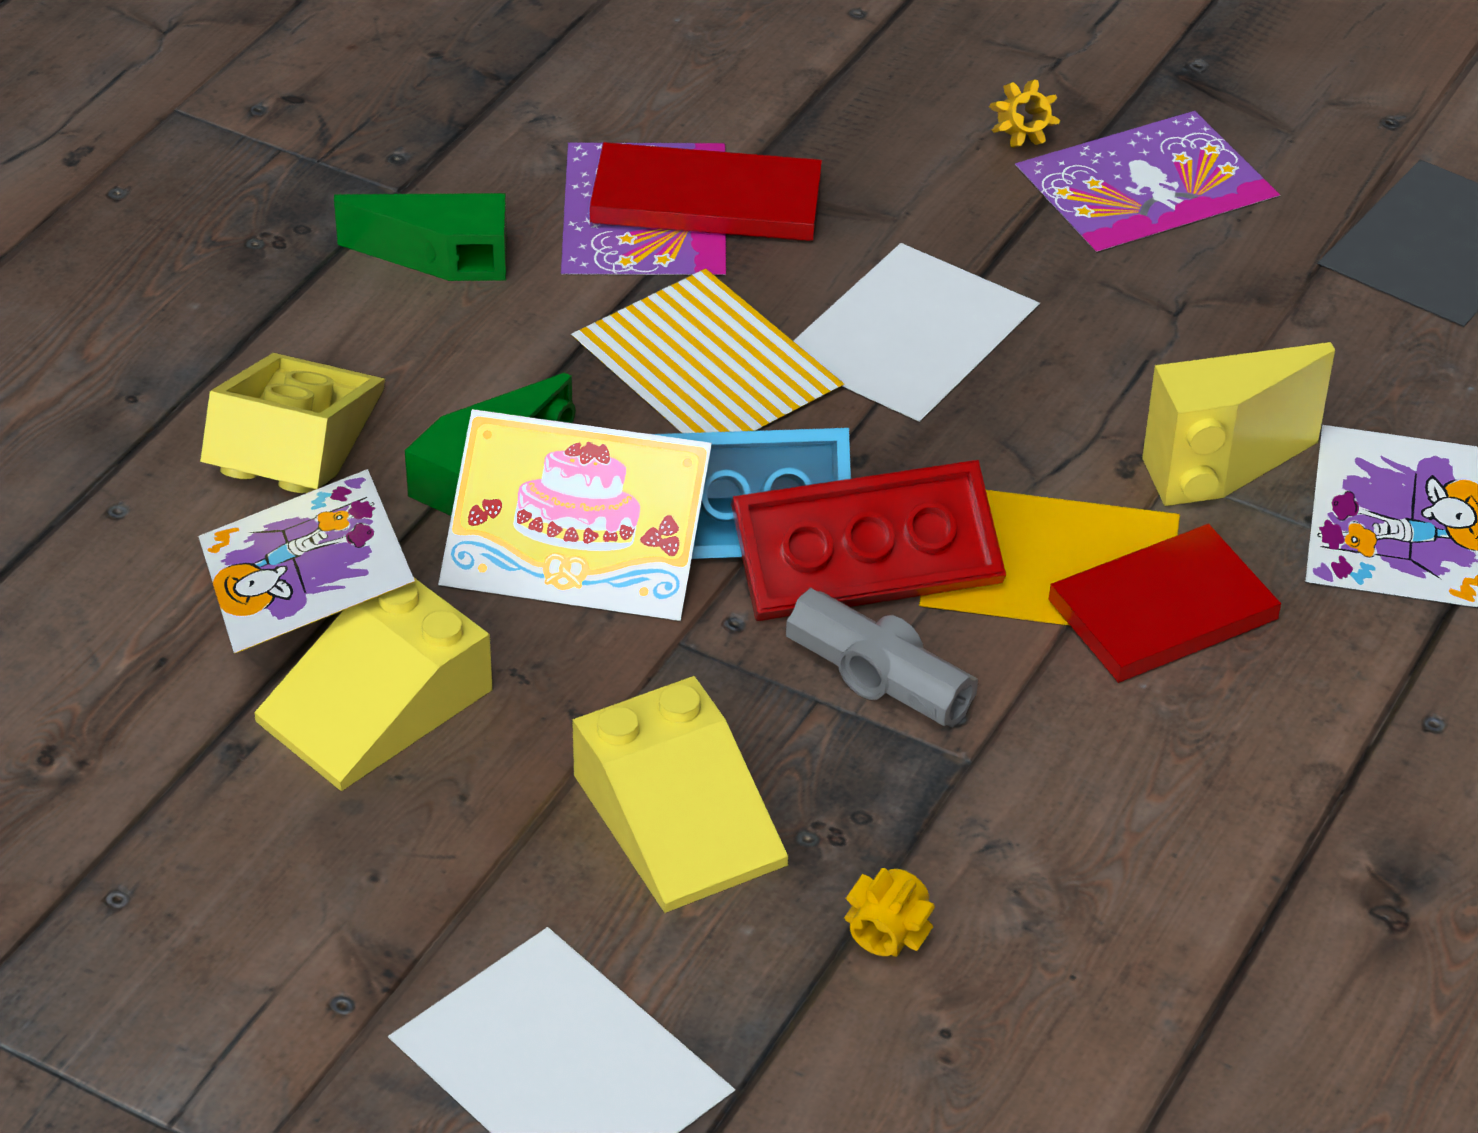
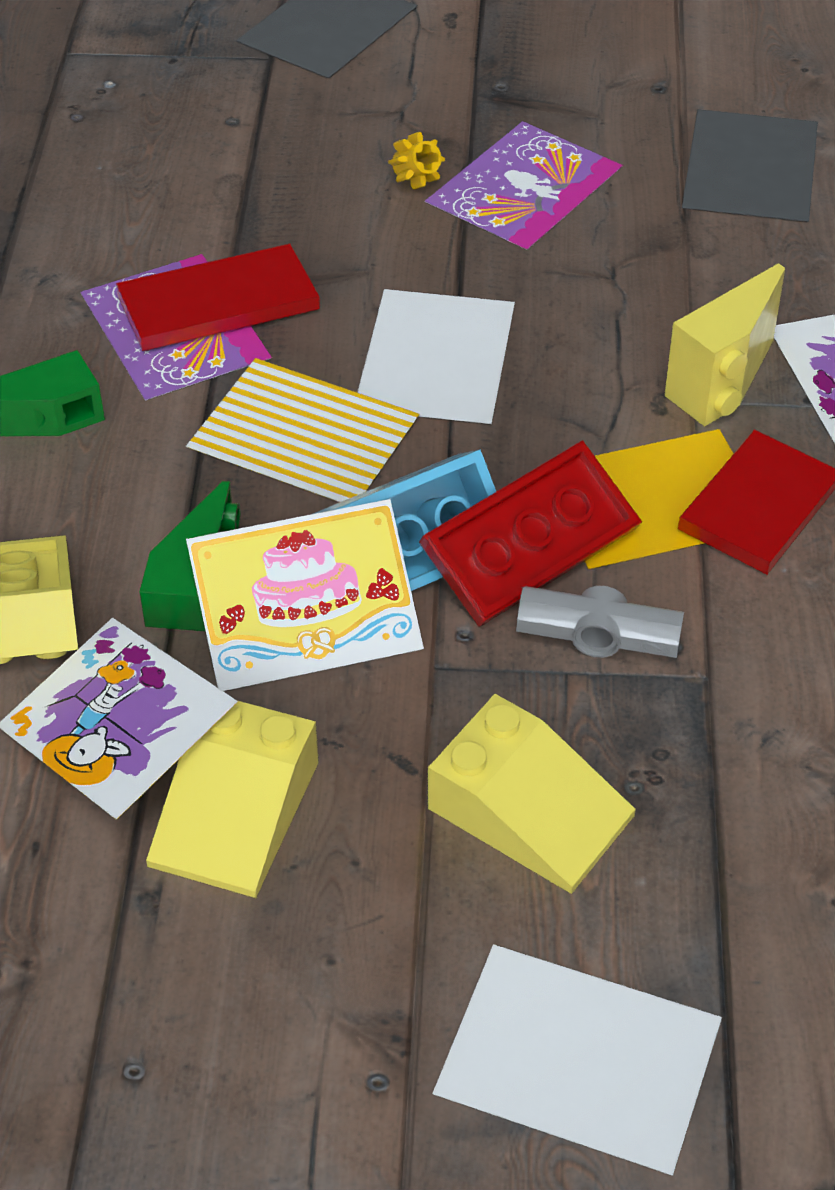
camera: 25 degrees left, 5 degrees up
(889, 912) = (749, 824): yellow gear -> none

